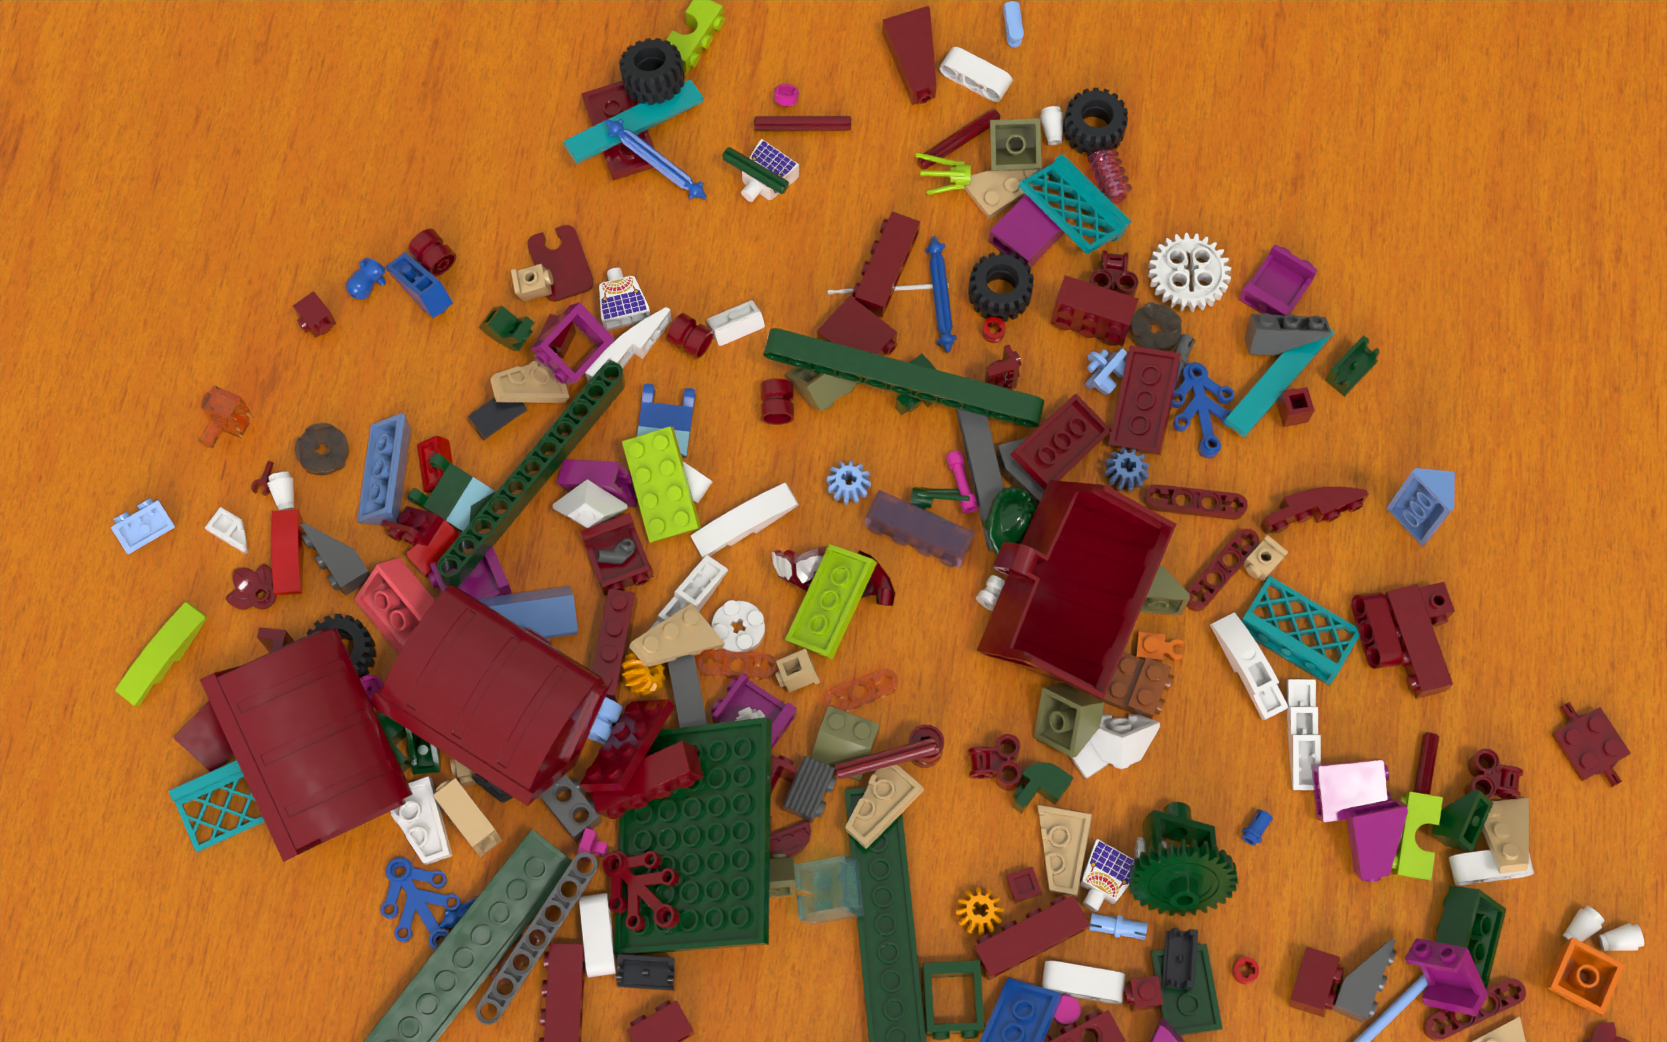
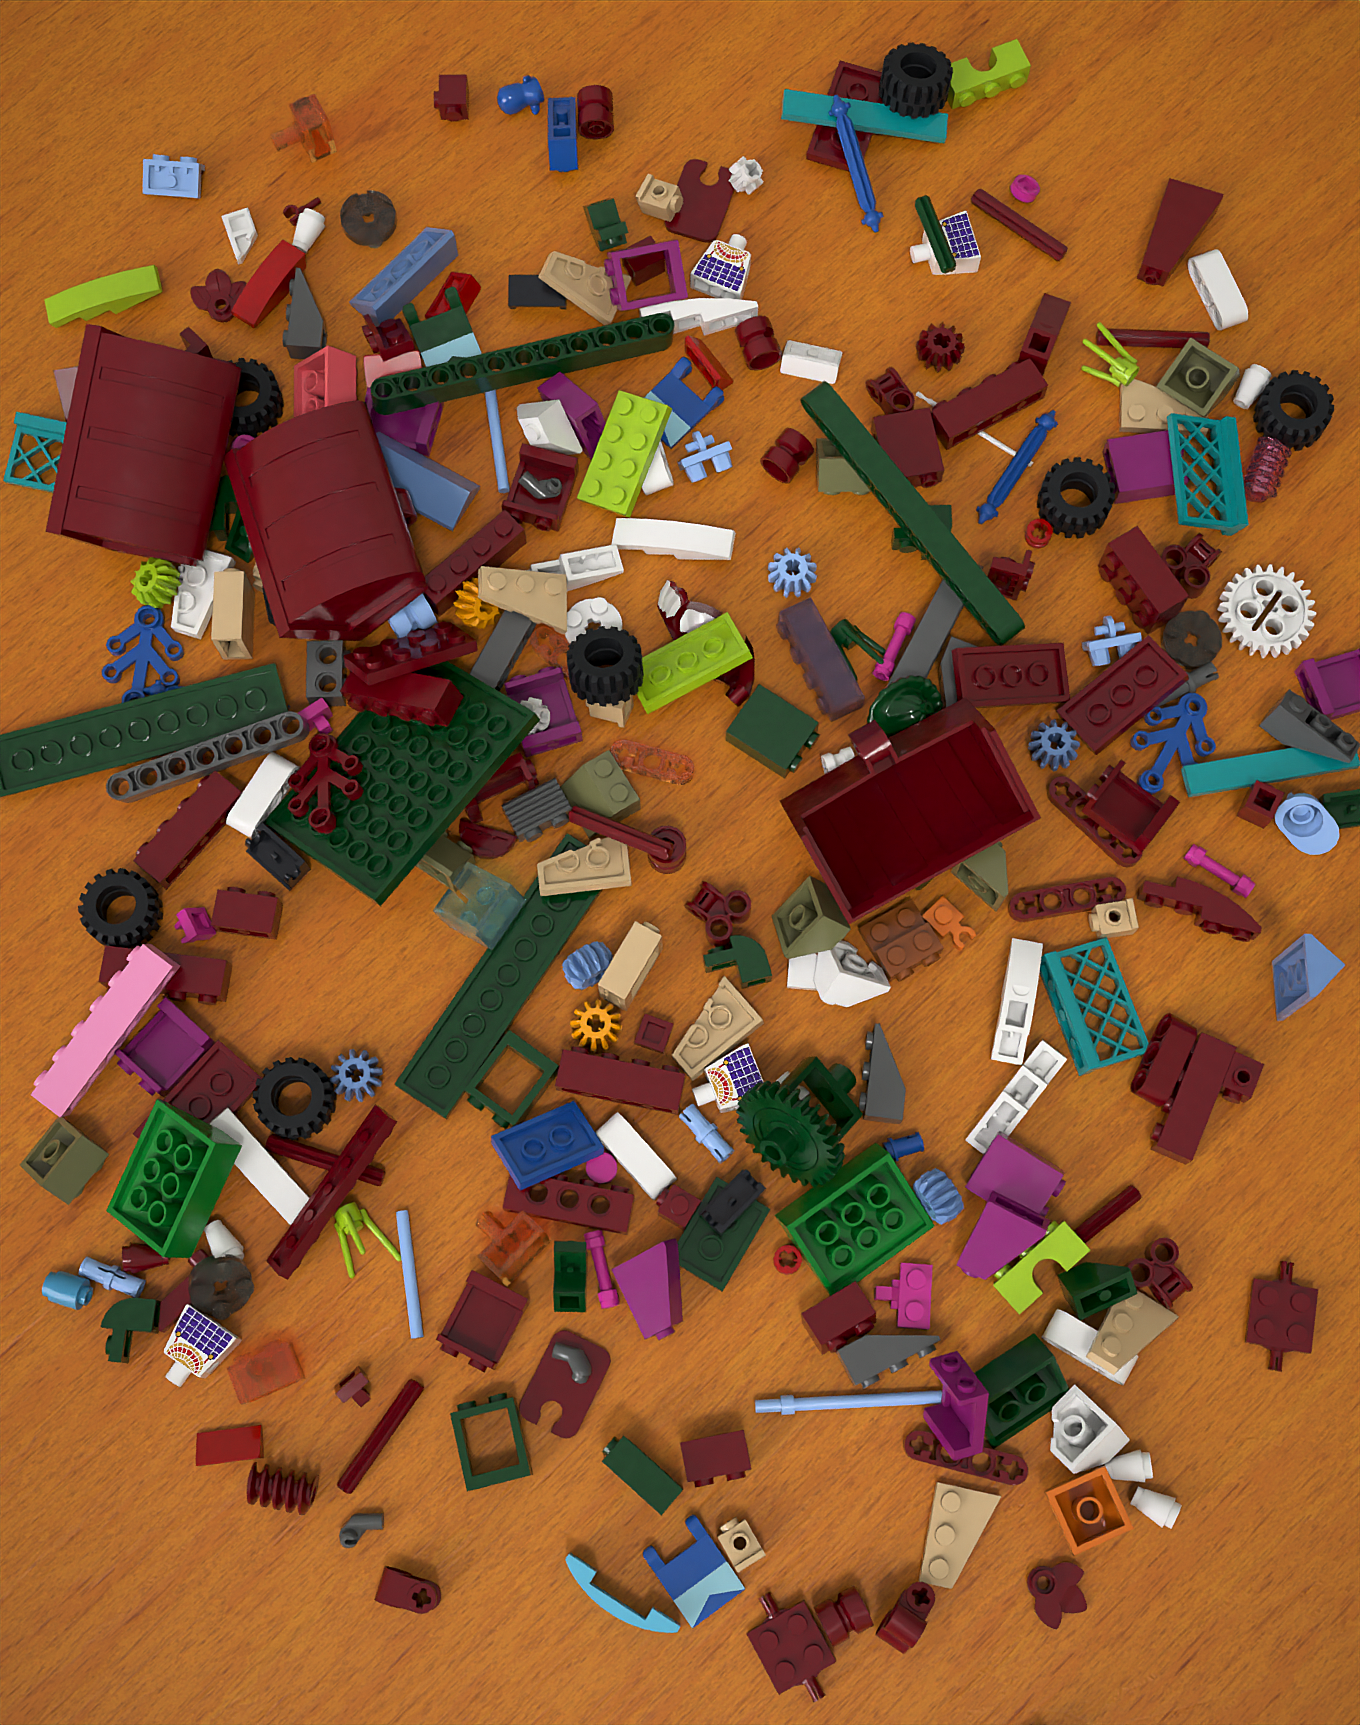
camera: 40 degrees right, 5 degrees up
(385, 838) = (155, 582): none -> lime gear
(556, 545) = (497, 442): none -> light blue bar
(581, 222) = (746, 175): none -> white gear
(663, 377) = (707, 363): none -> red slope
(714, 455) = (693, 464): none -> light blue hips
(772, 630) = (608, 683): none -> black tyre
(810, 303) = (890, 391): none -> dark red piece
(820, 247) = (940, 347): none -> dark red gear
(883, 186) = (1044, 331): none -> dark red slope
(929, 605) = (773, 731): none -> dark green brick
(940, 872) = (587, 965): none -> medium blue gear
(971, 847) = (631, 965): none -> tan window
(1013, 23) = (1294, 267): light blue bar -> none
(1210, 795) = (884, 1087): none -> dark grey slope
(1213, 476) = (1127, 809): none -> dark red panel
(1270, 907) = (855, 1219): none -> green slope
(1311, 842) = (938, 1196): none -> medium blue gear
(1326, 471) = (1242, 885): none -> dark pink bar
(1335, 397) = (1307, 824): none -> light blue piece
(1346, 927) = (910, 1295): none -> dark pink hinge
(1536, 926) = (1084, 1433): none -> white slope

